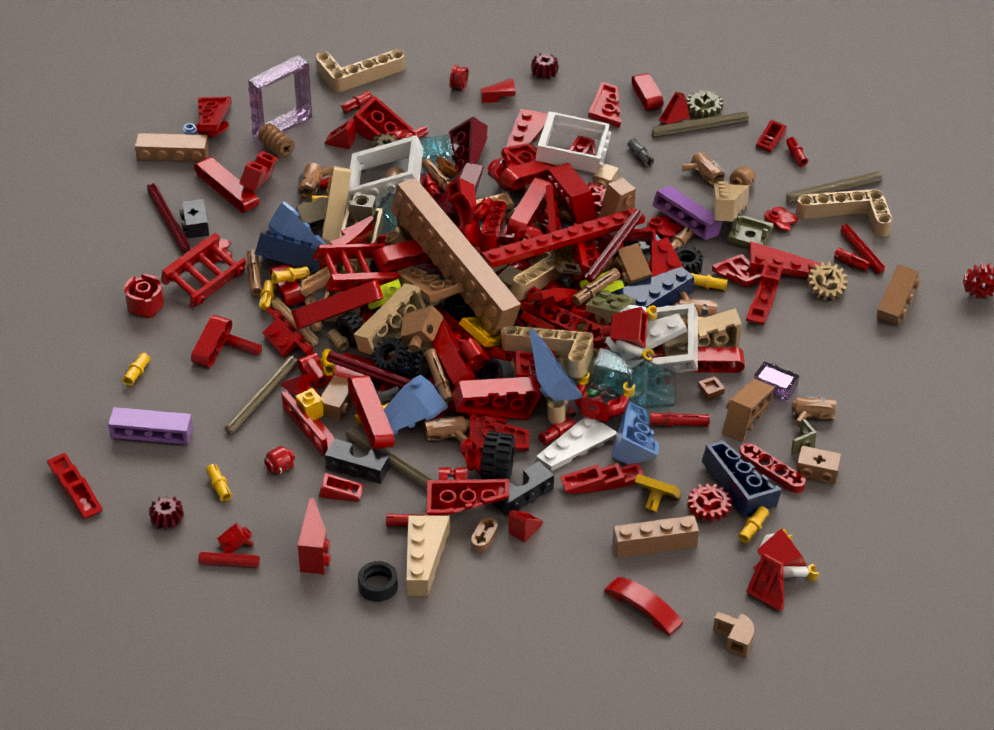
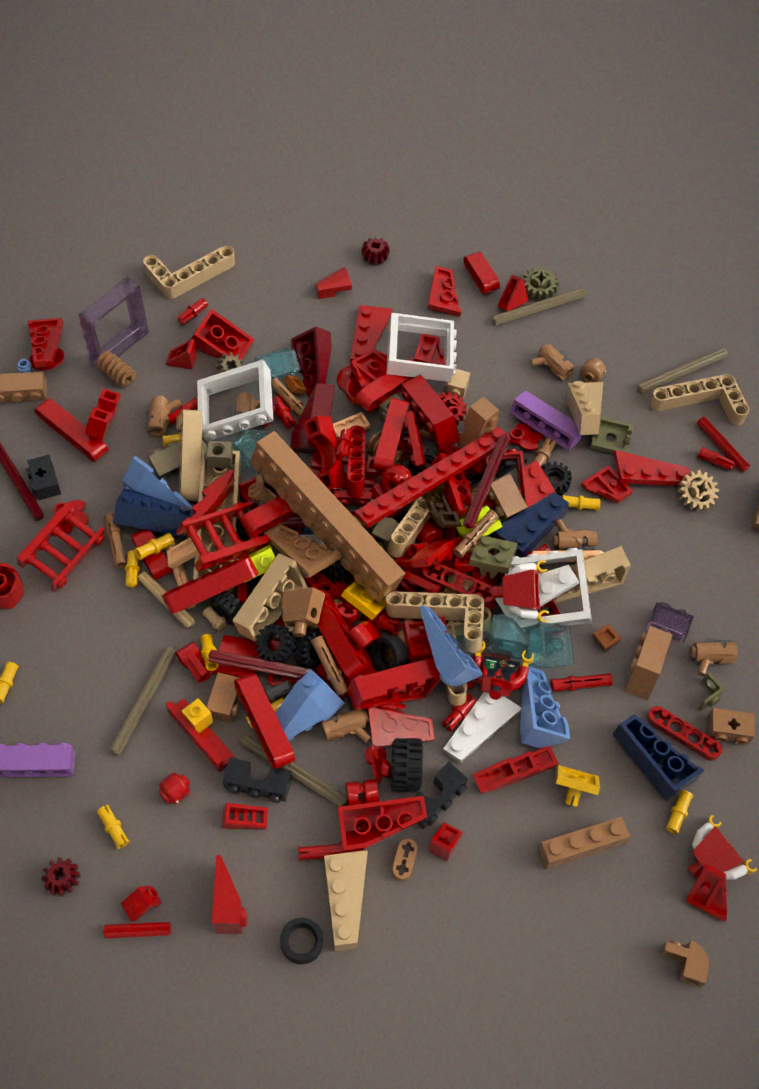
camera: 10 degrees left, 15 degrees up
(211, 341) = (81, 639): red beam -> none
(244, 344) = (107, 632): red axle -> none
(282, 335) = (158, 621): red bracket -> none
(299, 384) = (184, 690): red slope -> none
(420, 132) = (255, 349): red axle -> none
(459, 77) = (292, 273): red wheel -> none
(640, 152) = (486, 347): dark grey pin -> none
(647, 602) = (585, 930): red slope -> none
(709, 502) = (638, 785): red gear -> none
(720, 360) = (609, 601): red beam -> none
(765, 294) = (639, 513): red slope -> none
(772, 126) = (615, 304): red slope -> none
(780, 218) = (637, 415): red plate -> none
(796, 151) = (639, 331): red axle -> none

